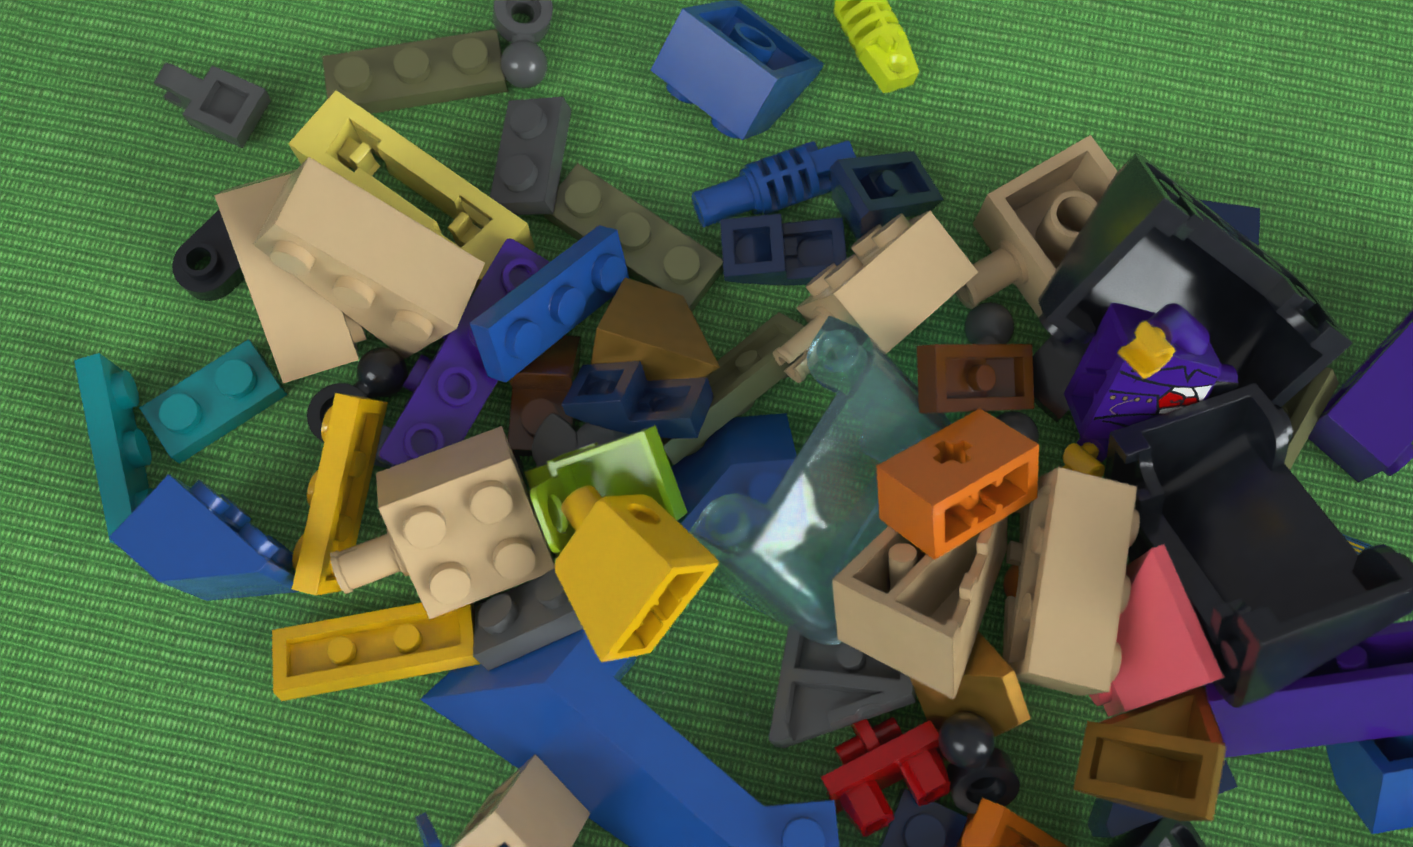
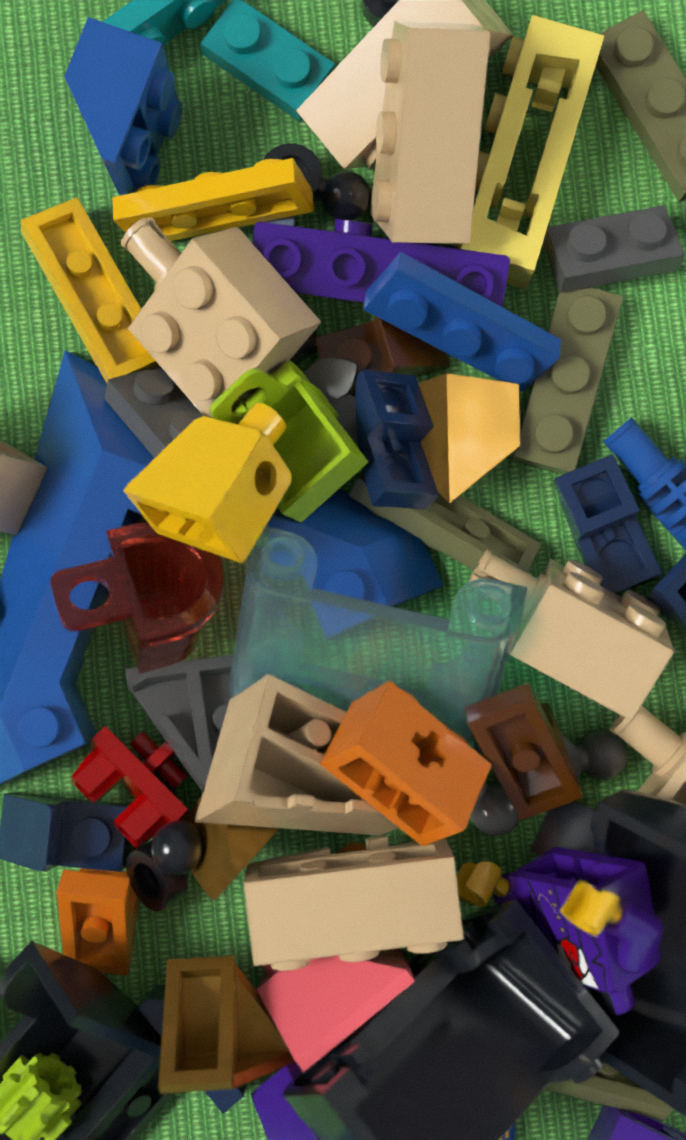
camera: 75 degrees right, 10 degrees up
(709, 678) = (155, 587): none -> clear red container

